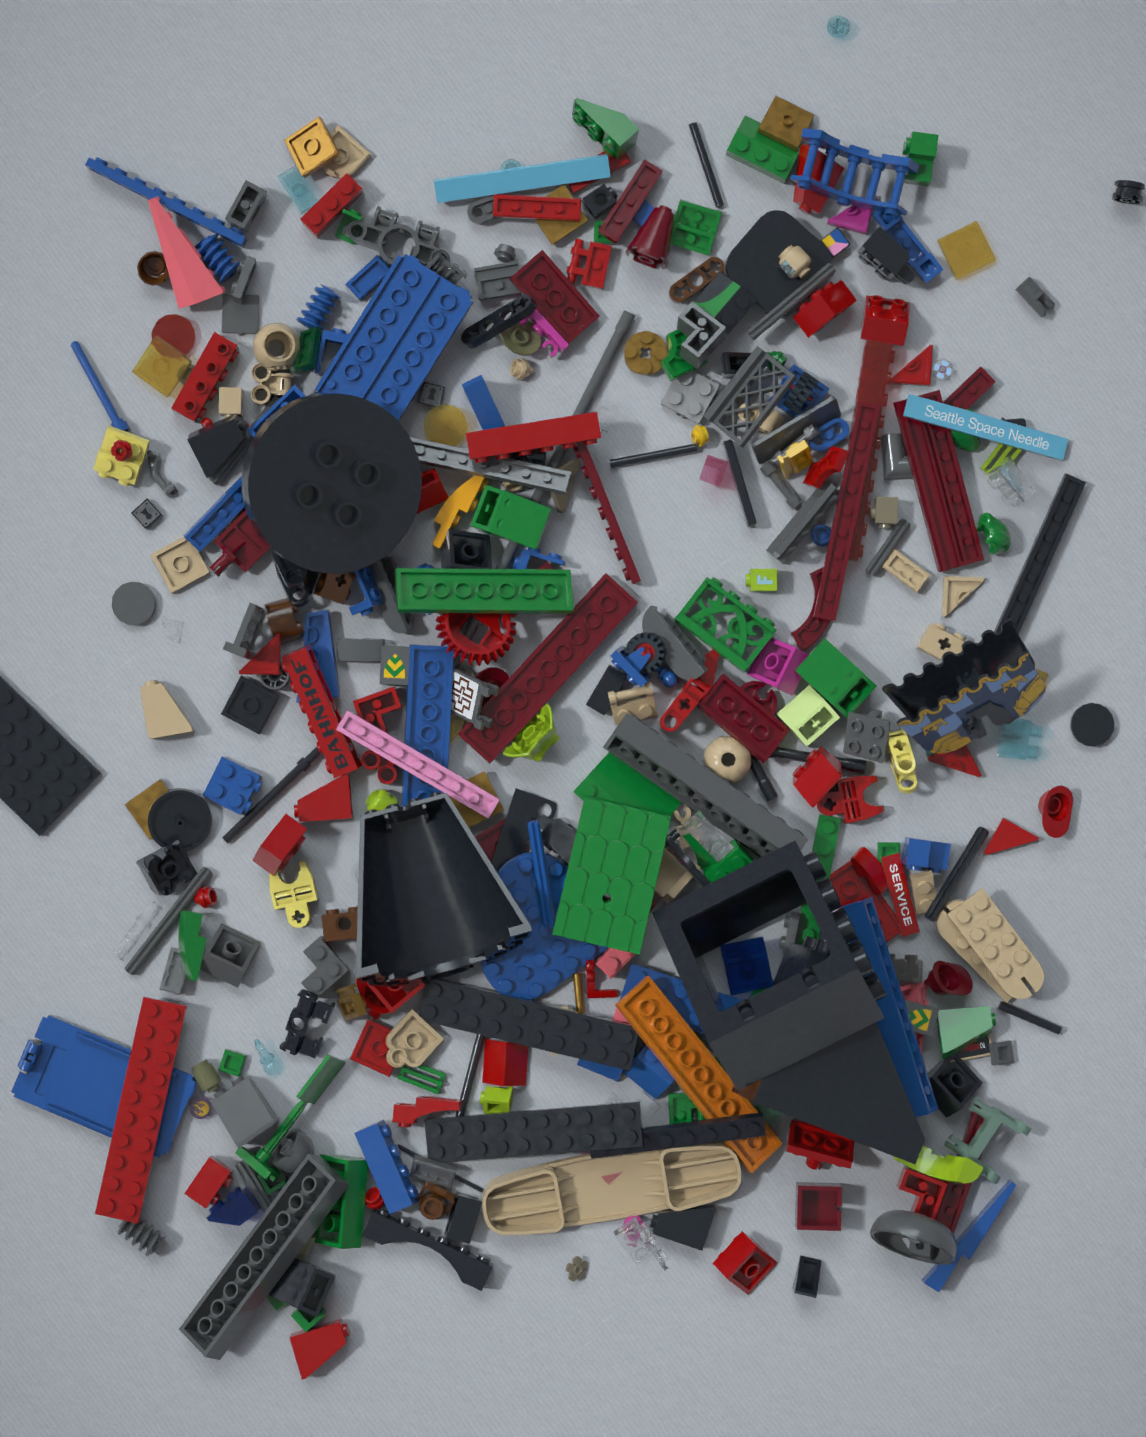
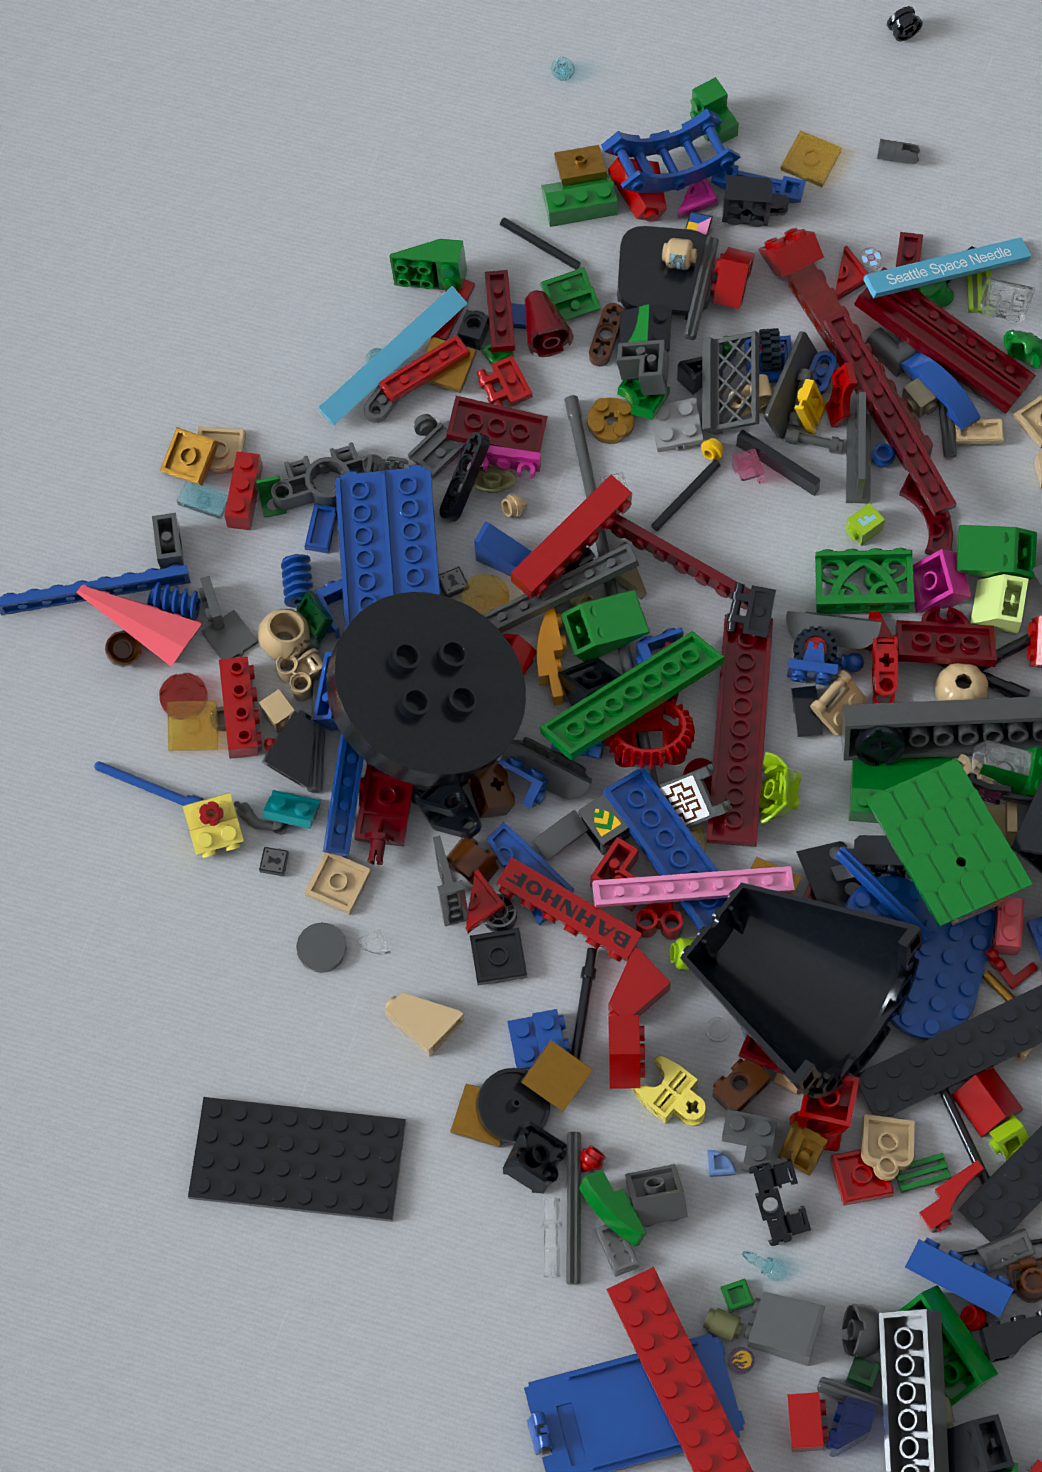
camera: 30 degrees left, 20 degrees down
(185, 485) = (291, 809): none -> teal plate
(222, 824) = (556, 1075): none -> pearl gold tile
(290, 966) = (719, 1164): none -> medium blue tile
(308, 1094) = (834, 1263): green piece -> none
(628, 592) = (758, 611): none -> black plate
(631, 760) = (880, 745): none -> black tile
(904, 518) = (944, 387): none -> blue slope

